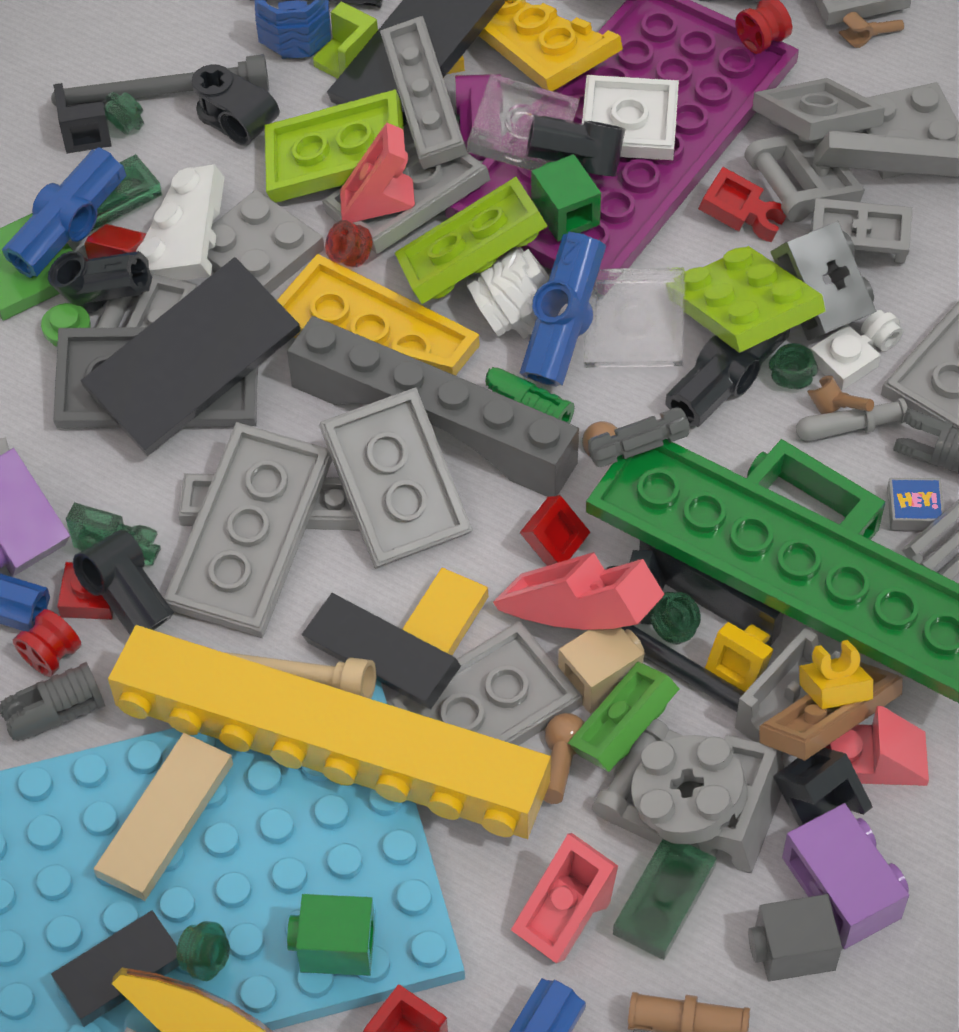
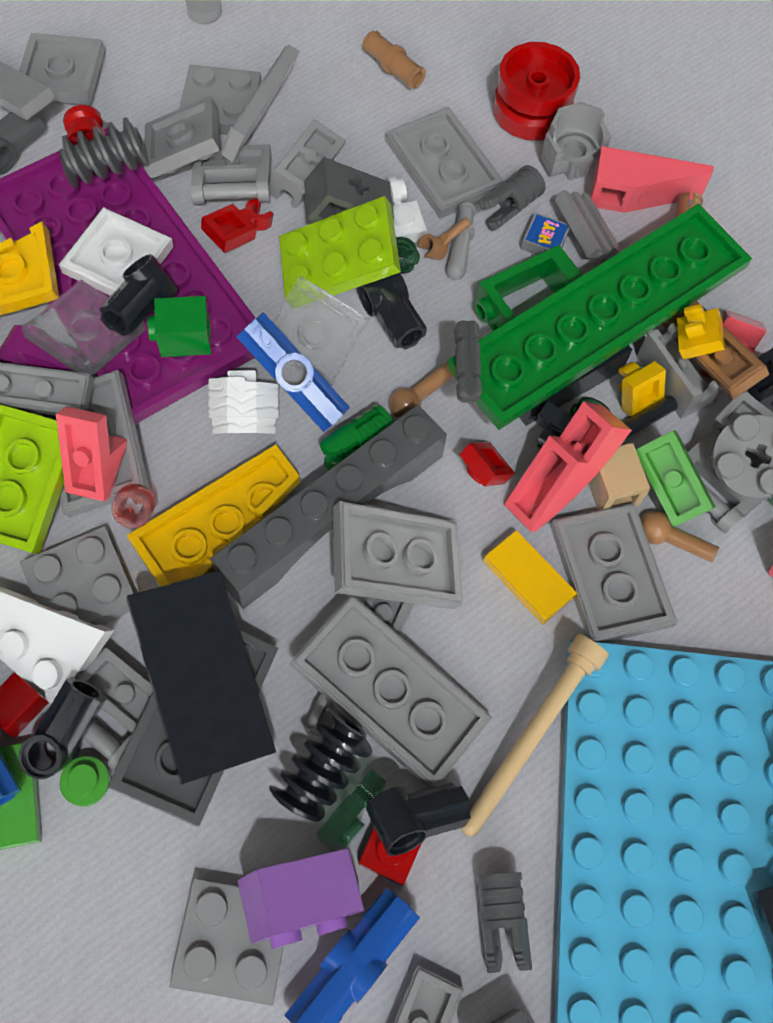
camera: 75 degrees left, 10 degrees up
(47, 642) = (442, 906): red wheel -> none
(145, 488) = (323, 769): none -> black piece
(163, 816) = (665, 855): tan tile -> none
(331, 732) = (627, 699): yellow brick -> none
(399, 657) = (551, 628): black tile -> none
(470, 241) = (190, 409): lime plate -> none
(737, 47) = (102, 151): none -> dark grey piece
(861, 32) = (108, 87): medium nougat hand -> none

